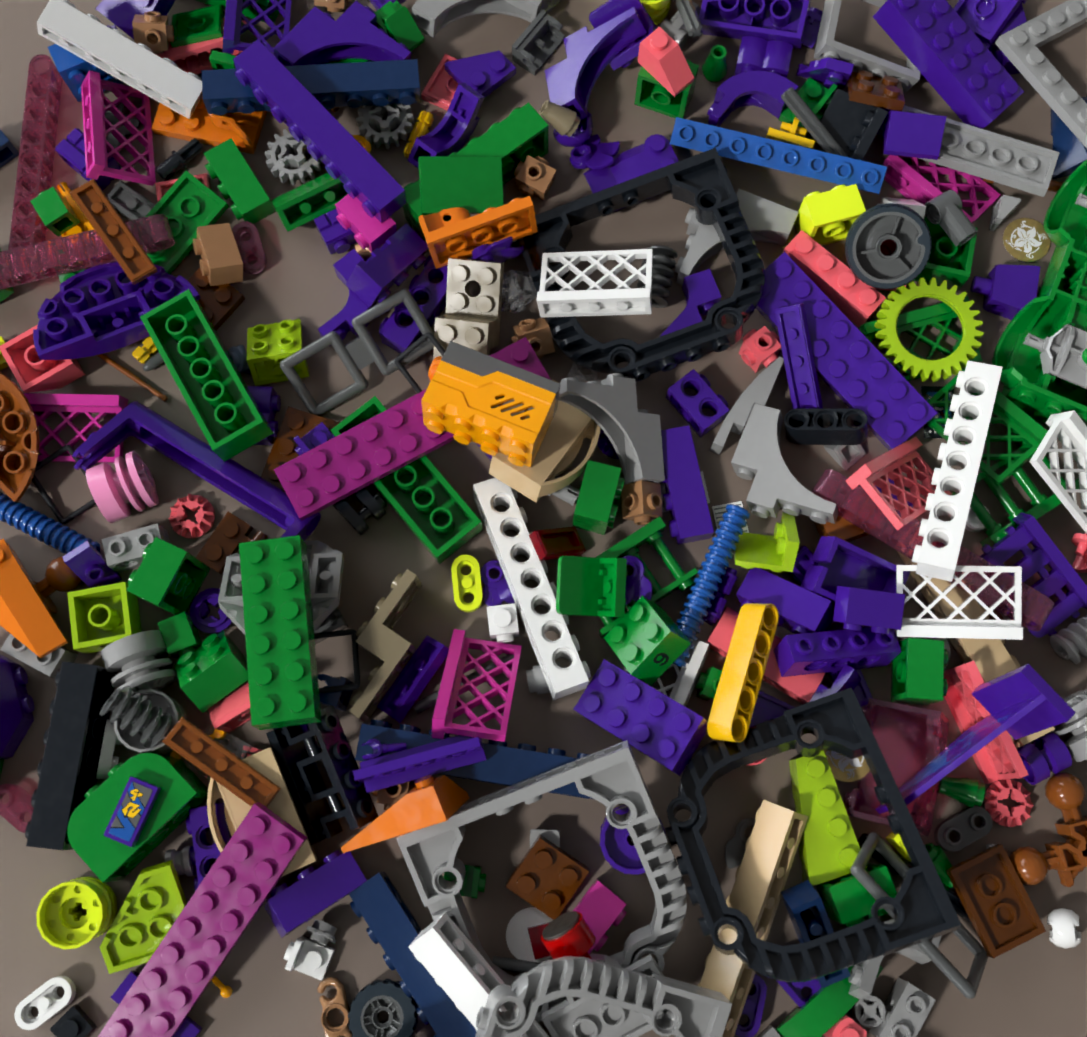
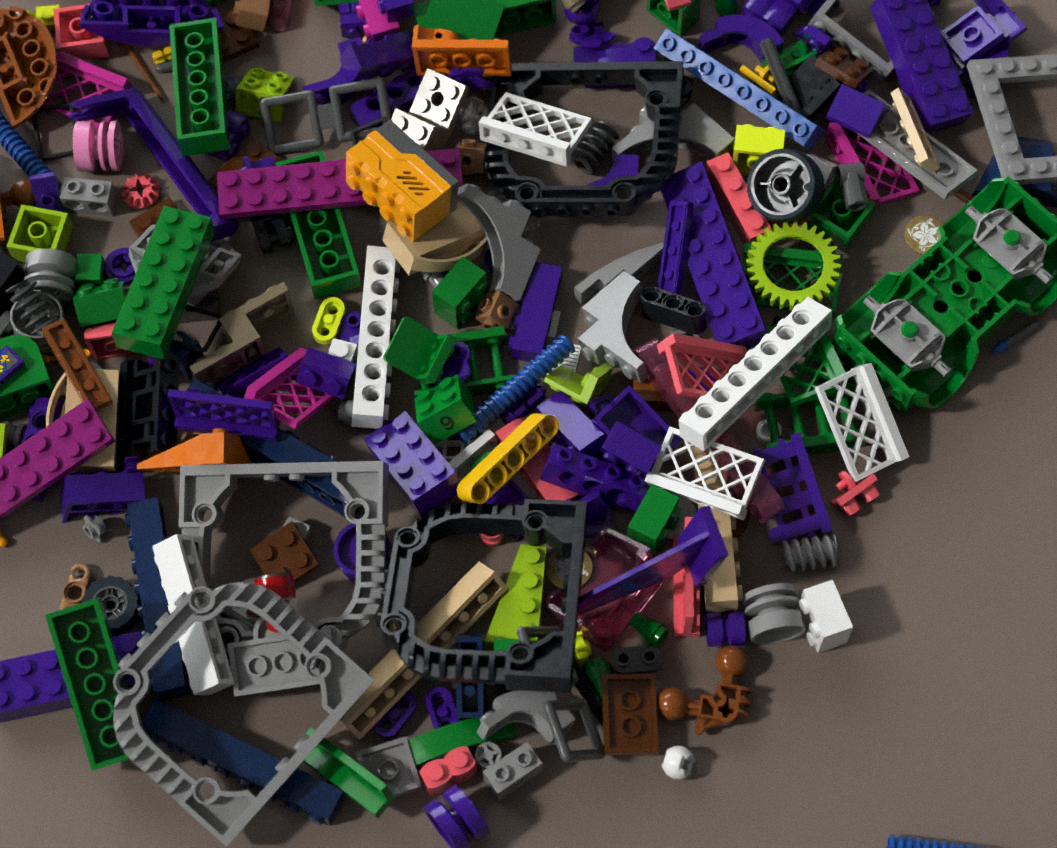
camera: 25 degrees right, 10 degrees down
(168, 577) = (101, 221): green brick -> none
(308, 957) = (75, 542): white bracket -> none
(332, 846) = (130, 464): none -> dark purple hand
(473, 882) = (224, 538): green bracket -> none
(499, 652) = (325, 373): none -> dark purple brick
(534, 177) = (532, 35): medium nougat brick -> none
(557, 543) = (403, 308): dark red tile -> none
(601, 910) = (313, 597): dark pink brick -> none
(691, 406) = (576, 256): dark purple brick -> none
(760, 348) = (650, 230): coral brick -> none
(989, 142) = (912, 125): none -> tan plate
(1000, 790) = (687, 666): coral gear -> none
(1002, 210) = (913, 203): light grey slope -> none
(1007, 288) = (882, 259): dark purple torso -> none

